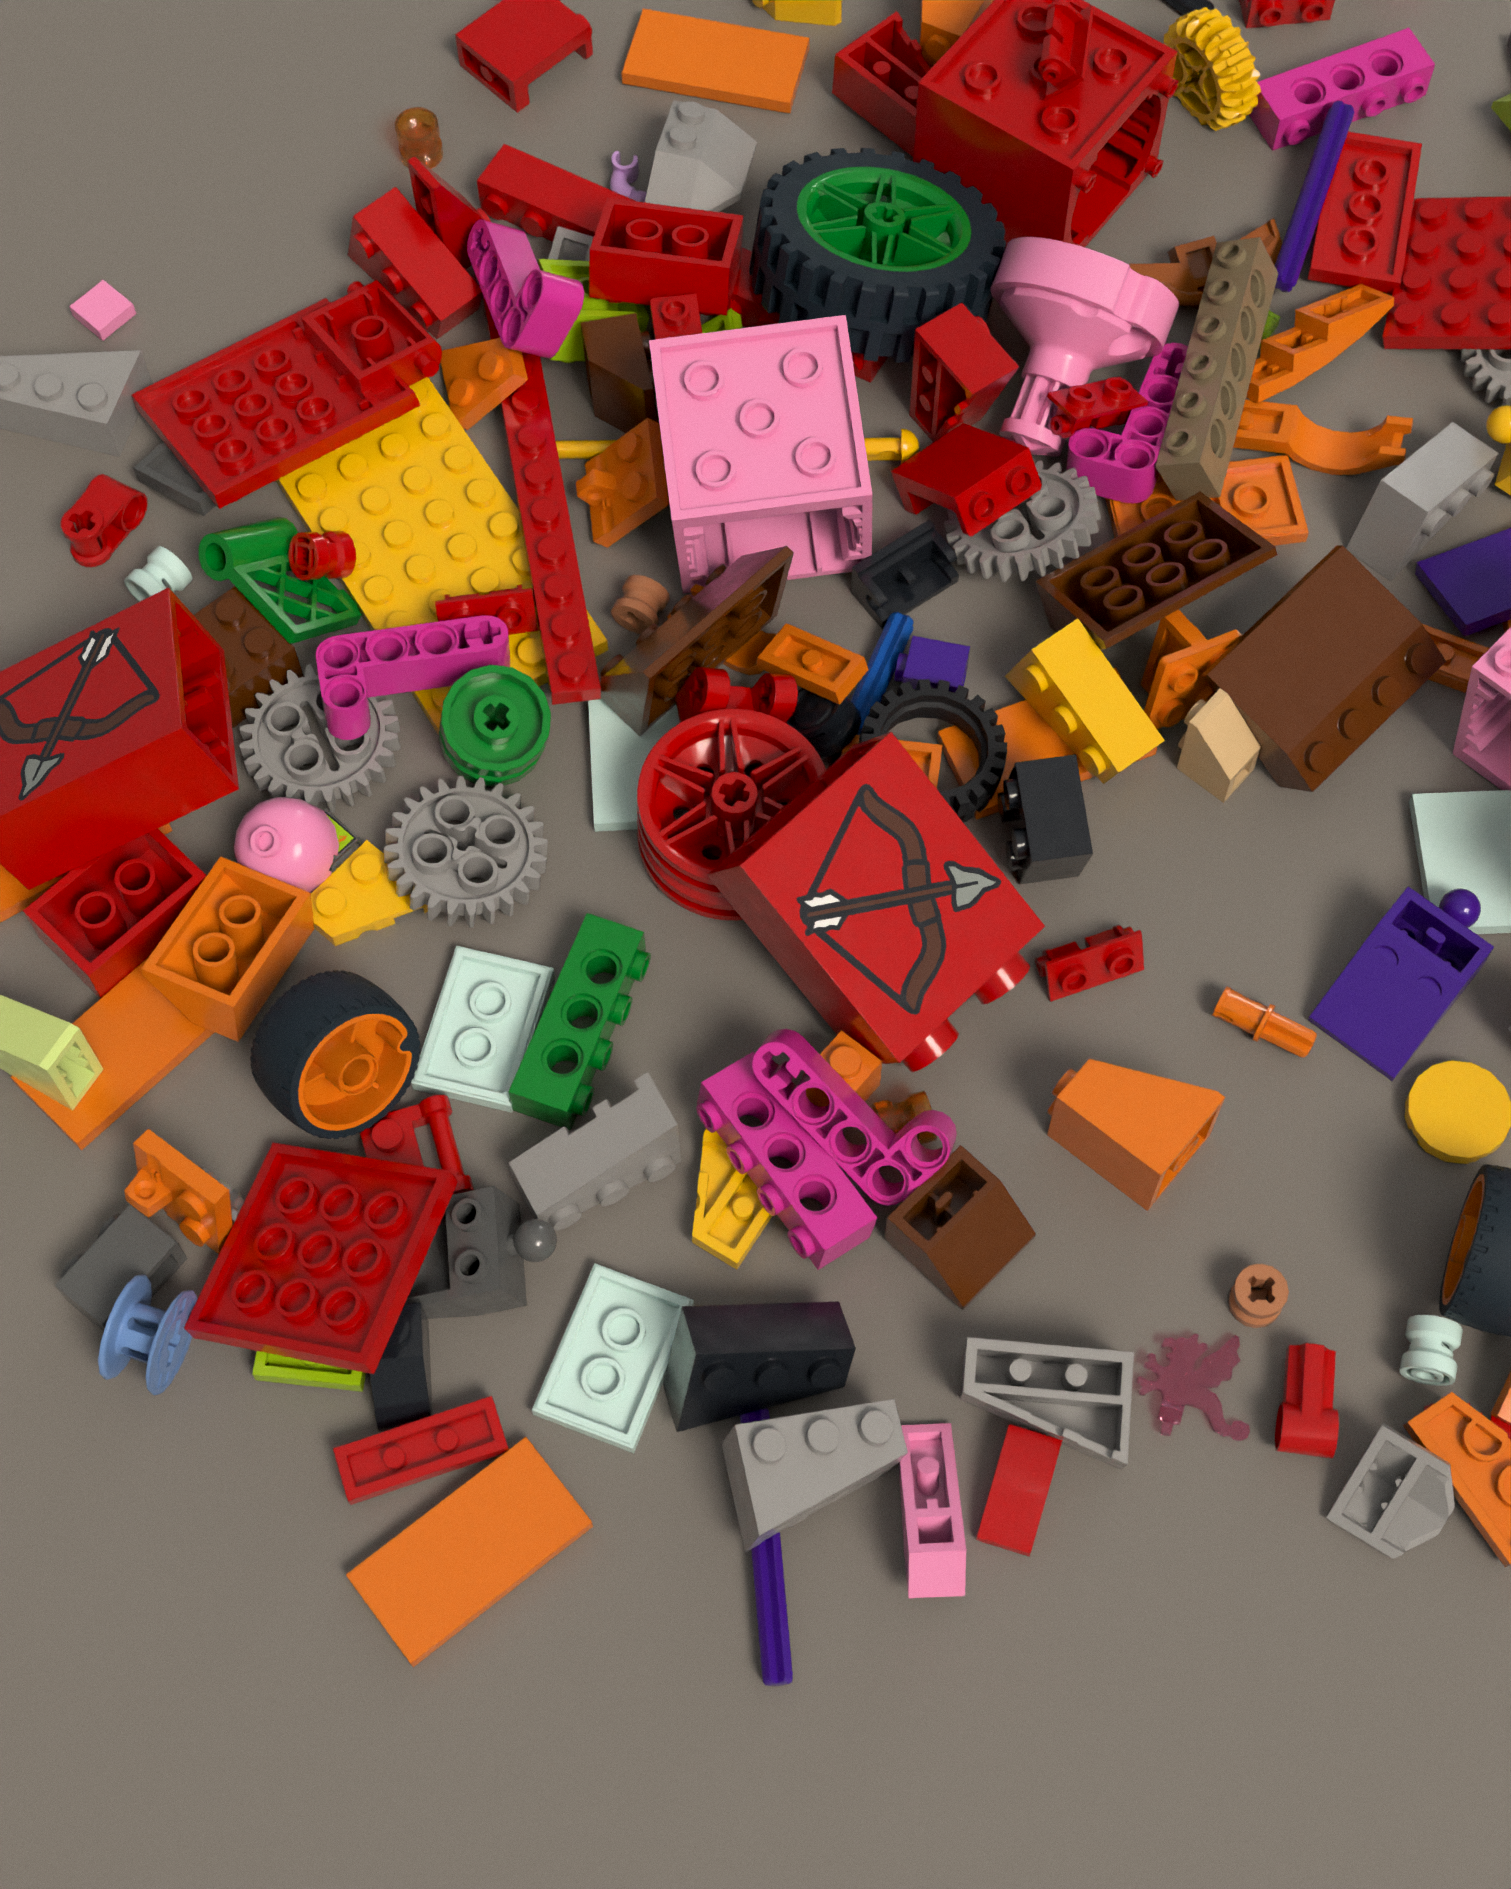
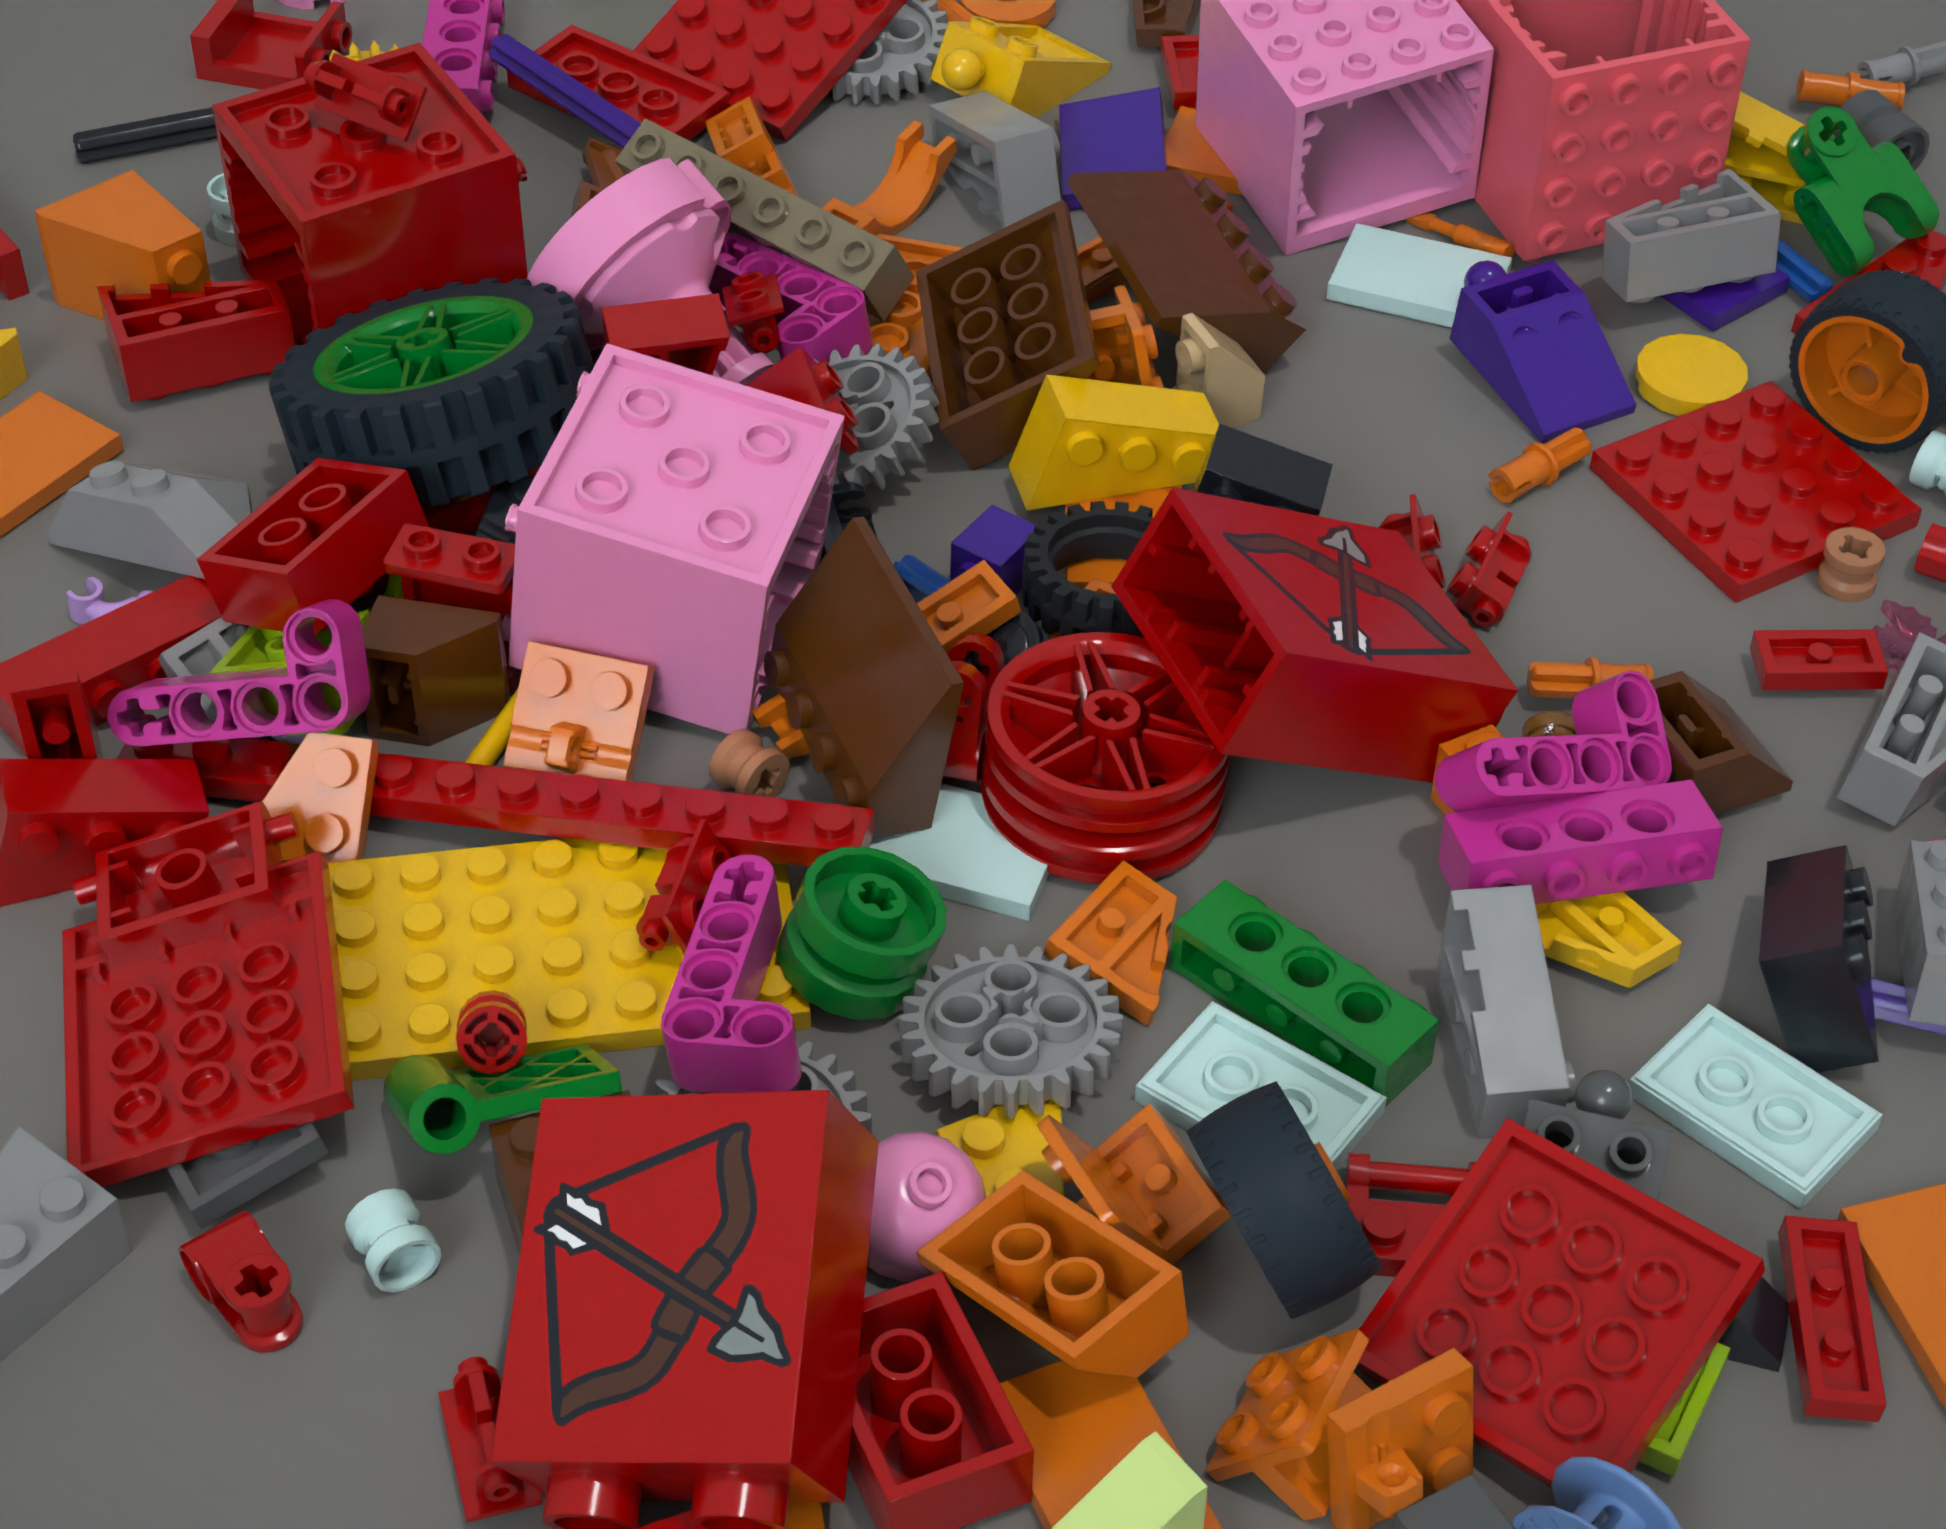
camera: 70 degrees left, 20 degrees down
(206, 1128) = (1283, 1420): none -> orange bracket
(344, 937) = (1139, 1183): none -> orange bracket
(583, 883) = (1122, 937): none -> orange wing
(1008, 1128) = (1568, 679): none -> orange axle
(1080, 1020) = (1489, 580): none -> red hinge
(1121, 1295) = (1818, 659): none -> red plate
(1131, 1125) = (1649, 570): orange slope -> none
(1330, 1199) = (1751, 488): none -> red plate

